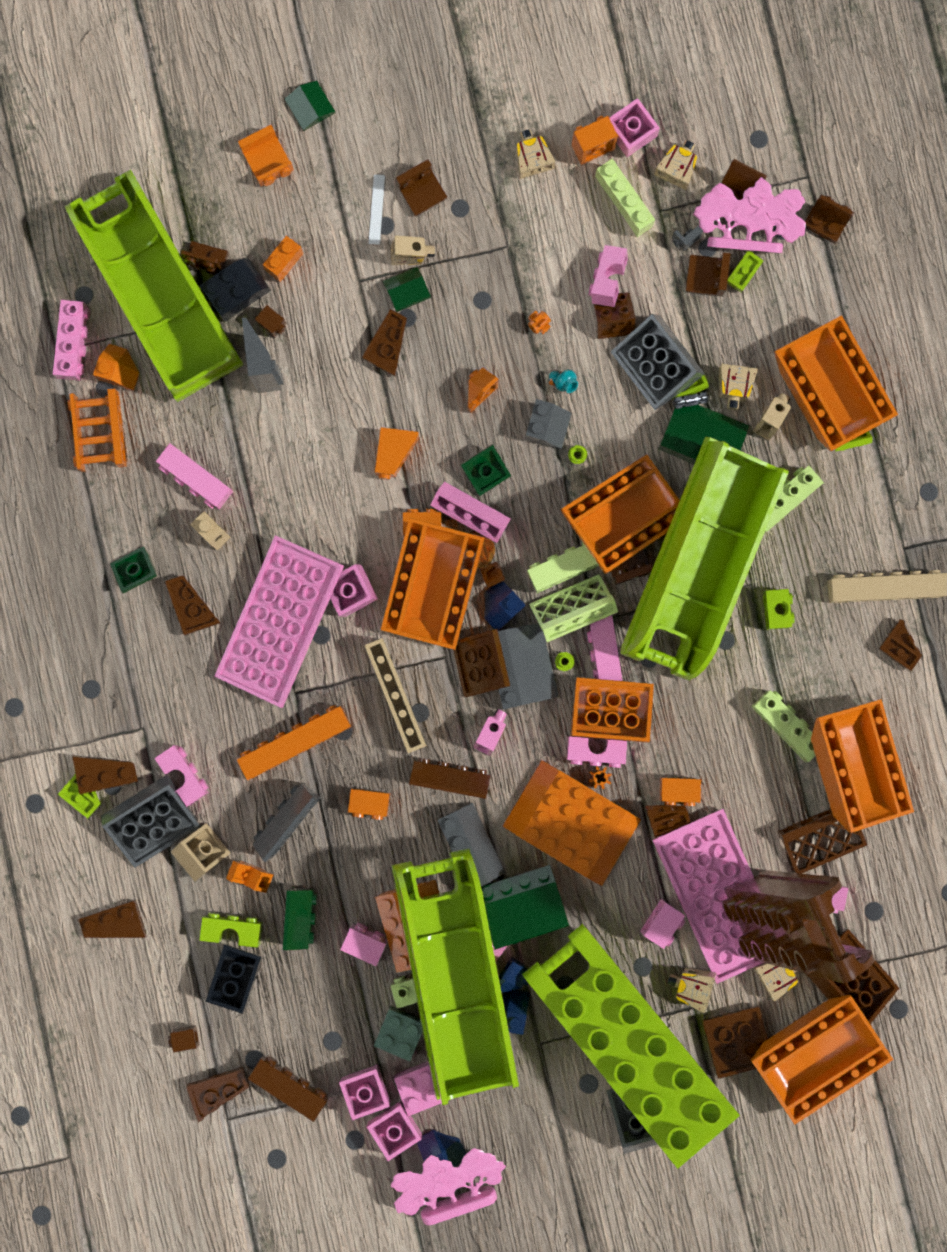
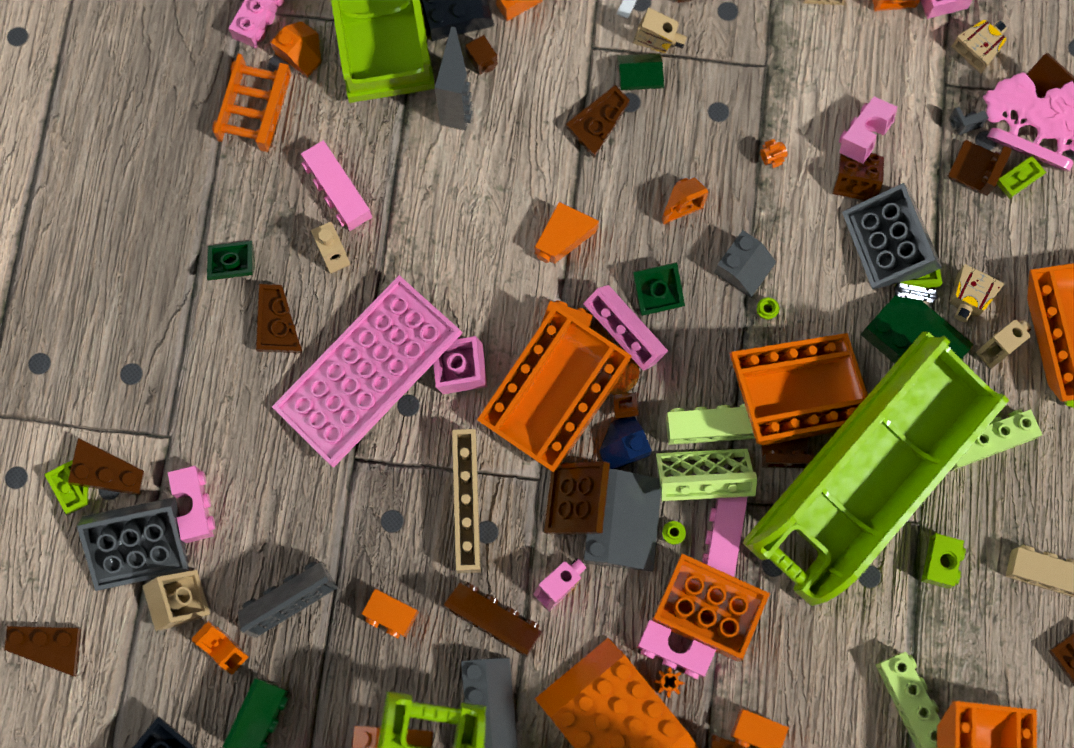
camera: 20 degrees right, 10 degrees down
(248, 930) = (193, 712): lime arch -> none
(293, 743) = (331, 513): orange brick -> none
(565, 381) = (780, 224): teal animal -> none
(624, 197) = (912, 57): yellowish green brick -> none

